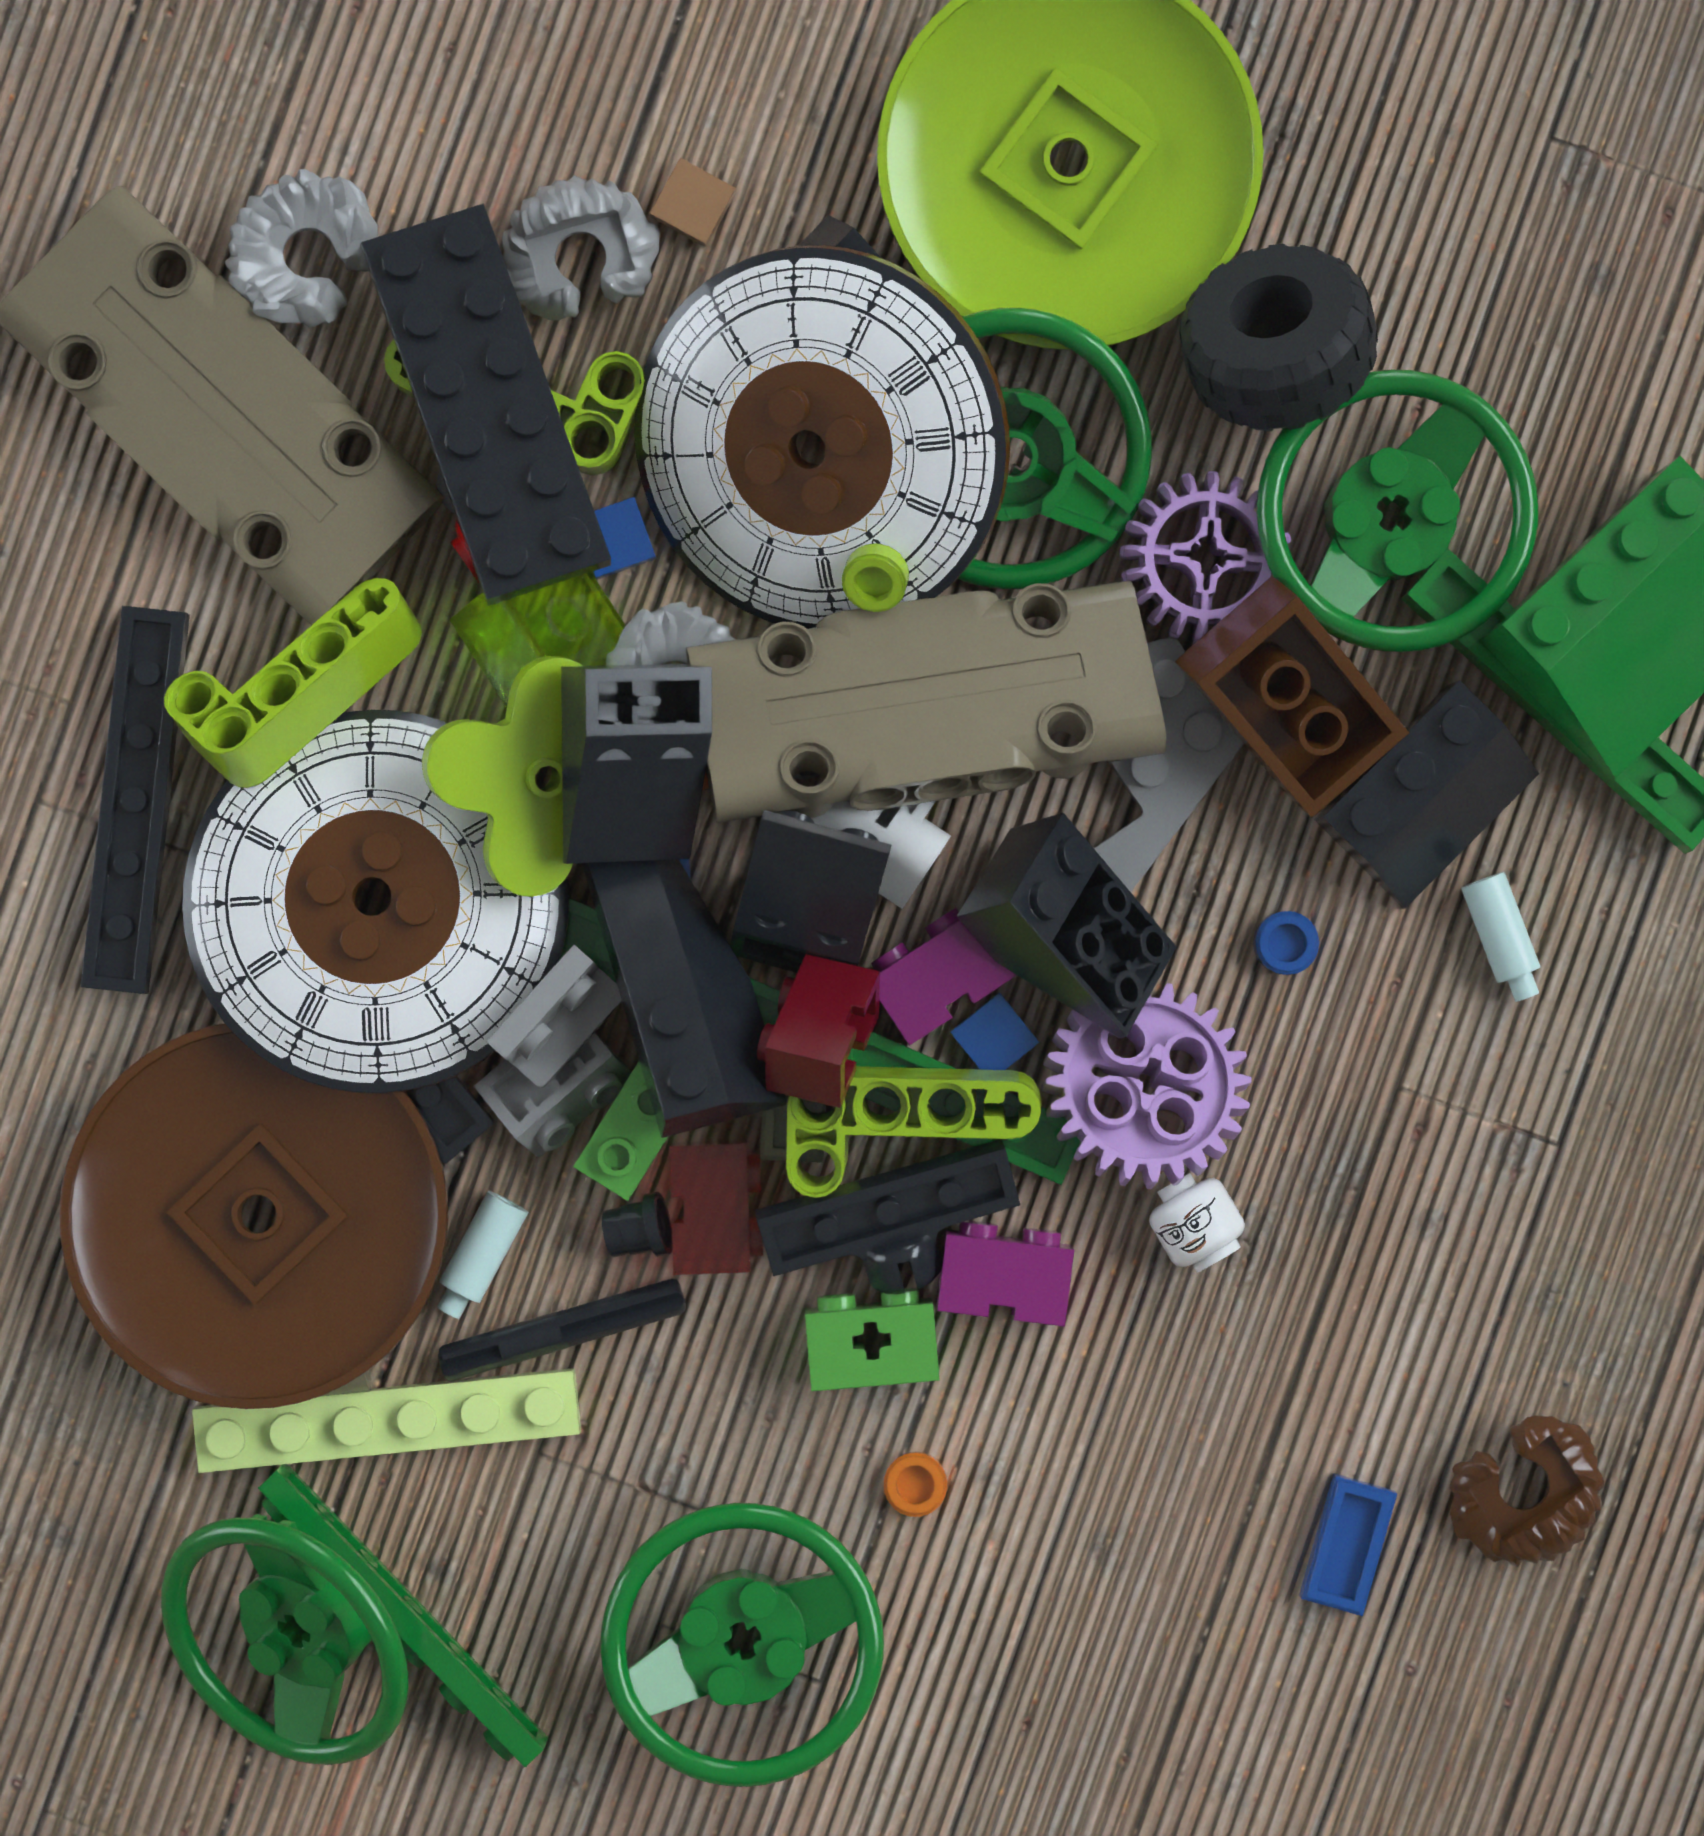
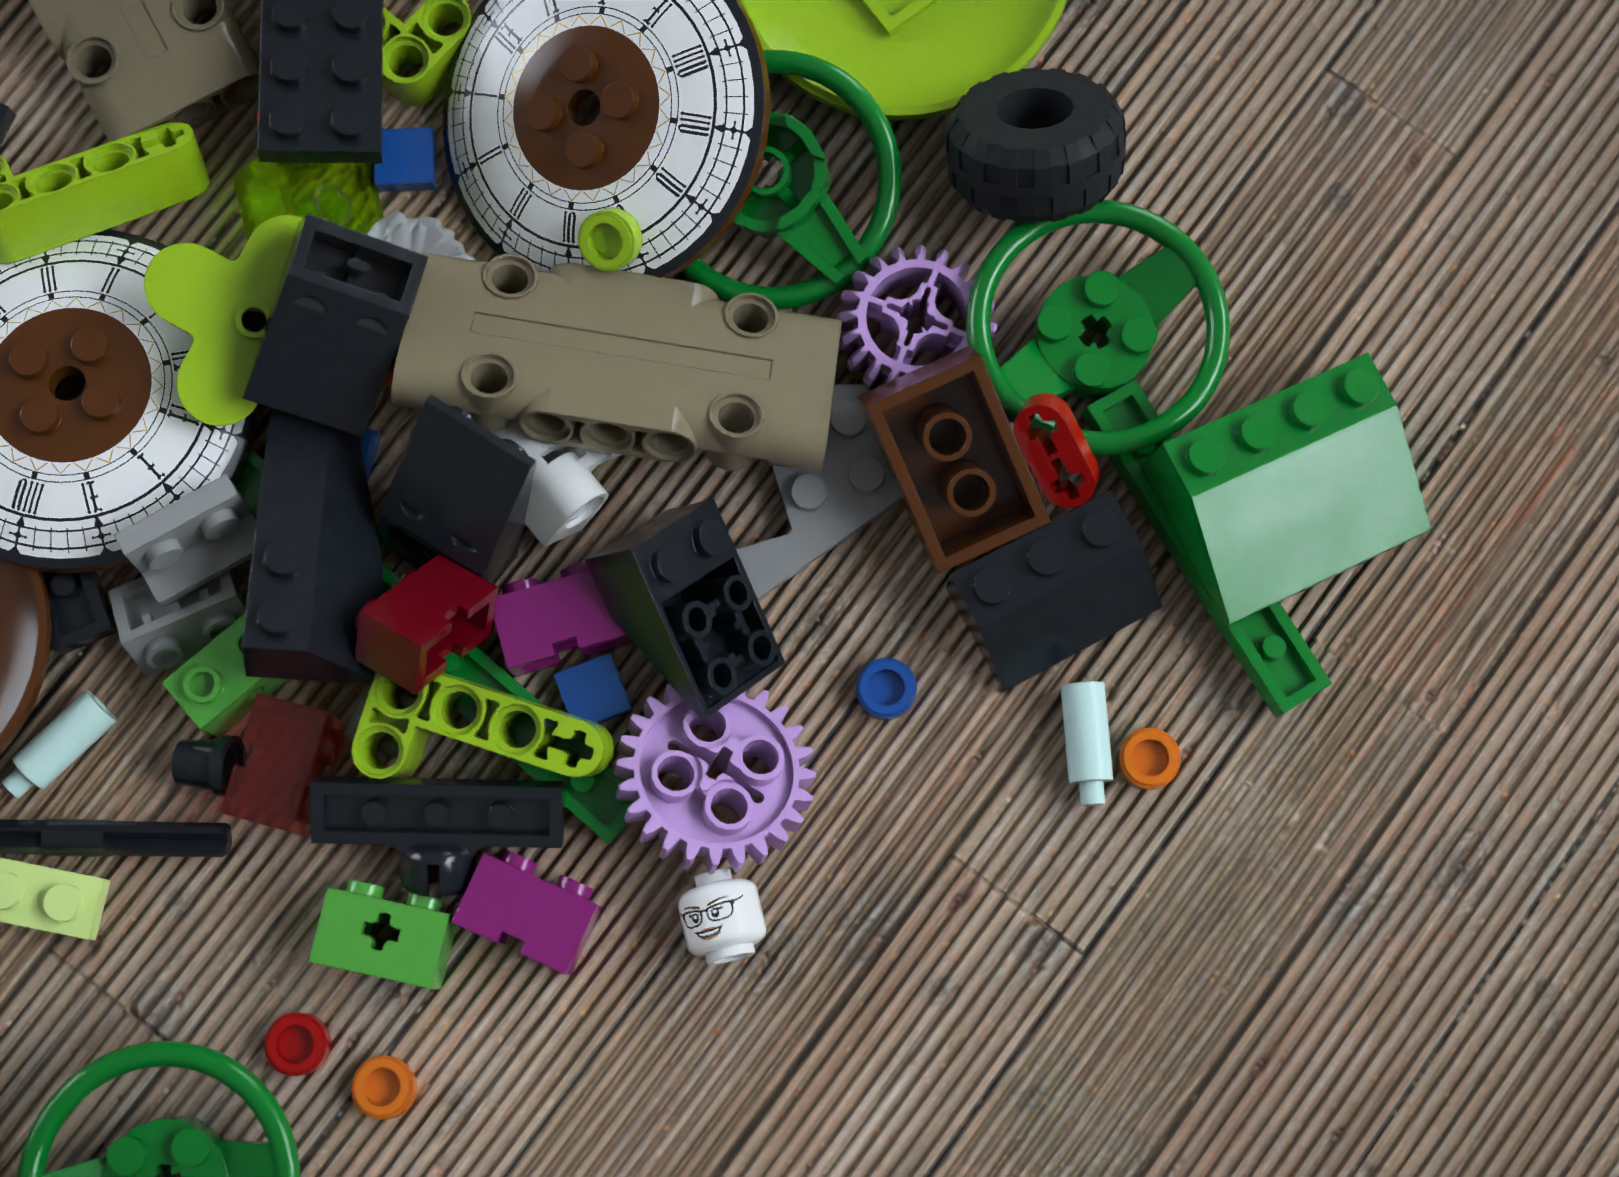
camera: 15 degrees right, 10 degrees down
(817, 1469) = (297, 1044): none -> red tile
(1404, 651) = (1045, 457): none -> red beam
(1568, 932) = (1148, 759): none -> orange tile

